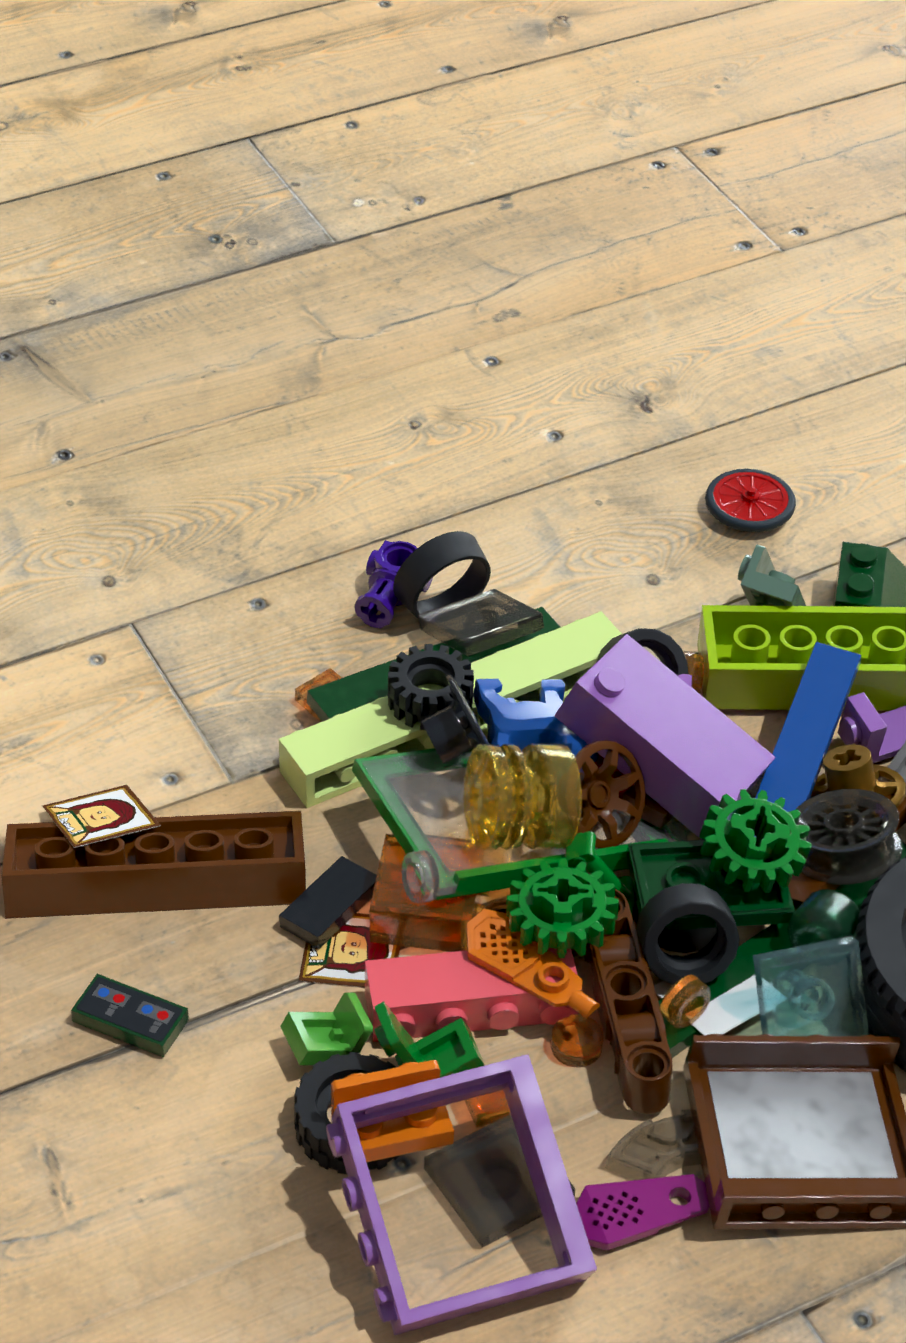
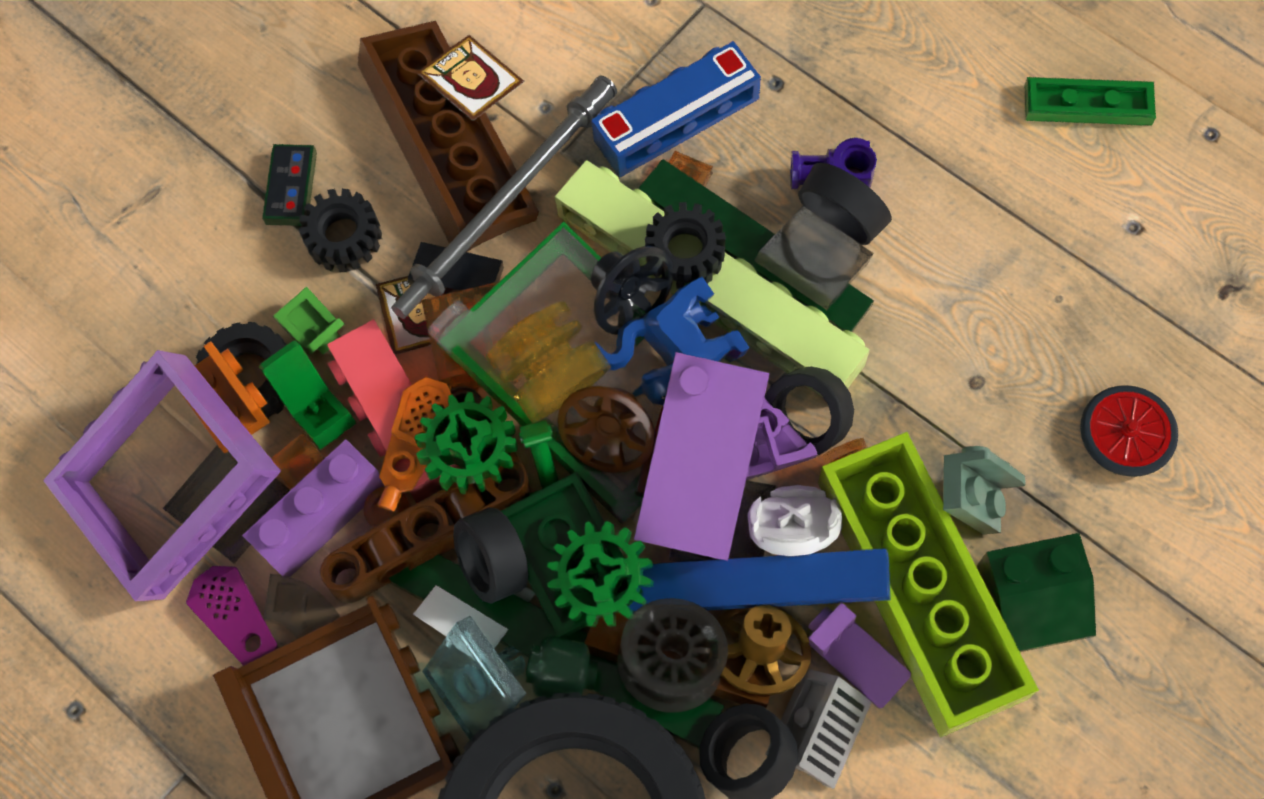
camera: 75 degrees right, 25 degrees up
(222, 957) = (334, 209): none -> black tyre
(250, 668) = (676, 108): none -> blue brick
(351, 892) = (580, 113): none -> dark grey bar
(416, 413) = (1089, 101): none -> green tile
(573, 1100) = (314, 509): none -> medium lavender brick
(685, 1001) = (431, 579): clear orange tile -> none
(757, 705) = (794, 521): none -> white tile

